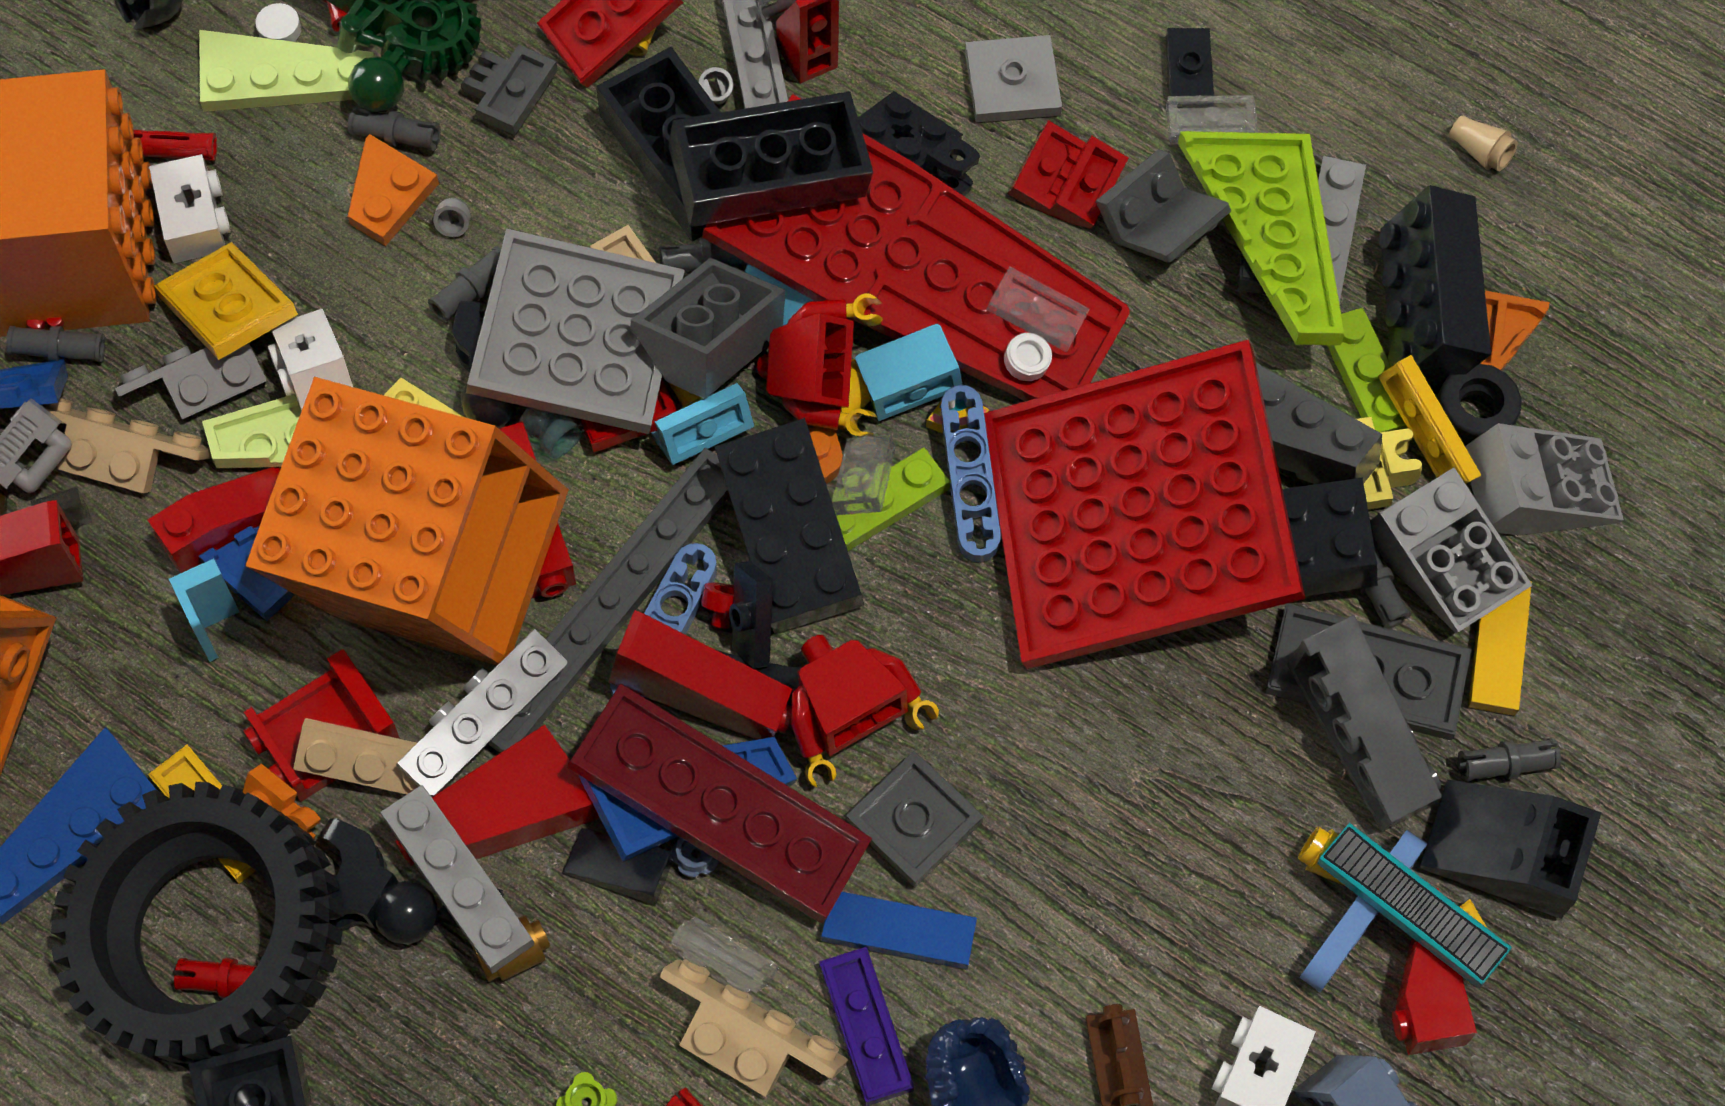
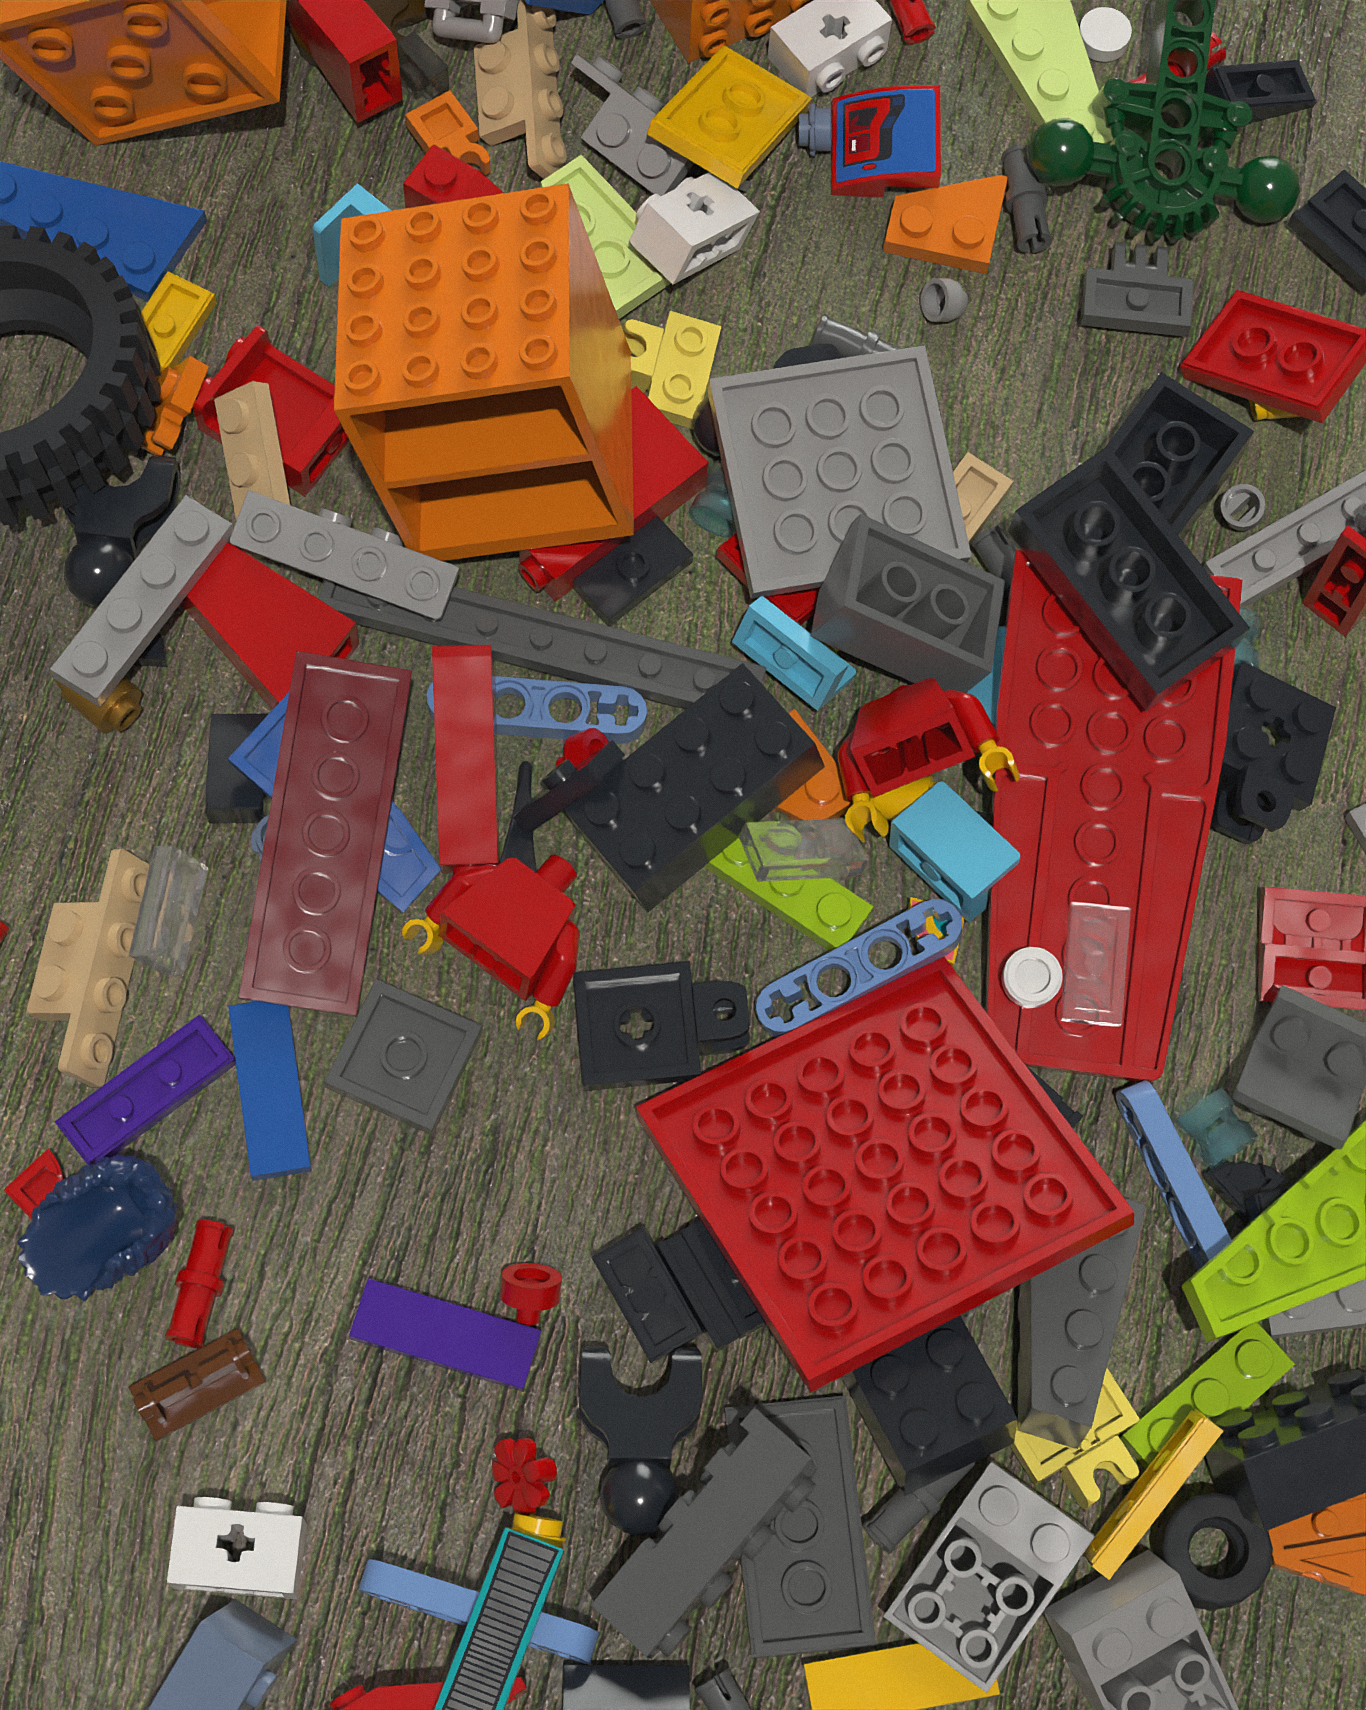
camera: 65 degrees right, 5 degrees up
(124, 515) = (448, 127): none -> orange plate
(262, 248) = (816, 129): none -> sand blue plate
(296, 204) = (886, 140): none -> slope
(583, 520) = (632, 571): none -> black plate
(964, 609) = (681, 1016): none -> black plate
(1041, 1032) = (199, 1283): none -> red pin
(1133, 789) = (530, 1290): none -> red tile
(1142, 866) = (445, 1335): none -> dark purple tile
(1165, 708) = (648, 1295): none -> black plate
(1173, 660) = (710, 1286): none -> black plate
(1179, 287) = (1225, 1139): none -> clear light blue wheel
(1205, 328) = (1172, 1172): none -> medium blue beam
(1221, 290) = (1241, 1180): none -> black tile
(1269, 752) = (639, 1435): none -> black piece
(1273, 844) = (521, 1475): none -> red plant

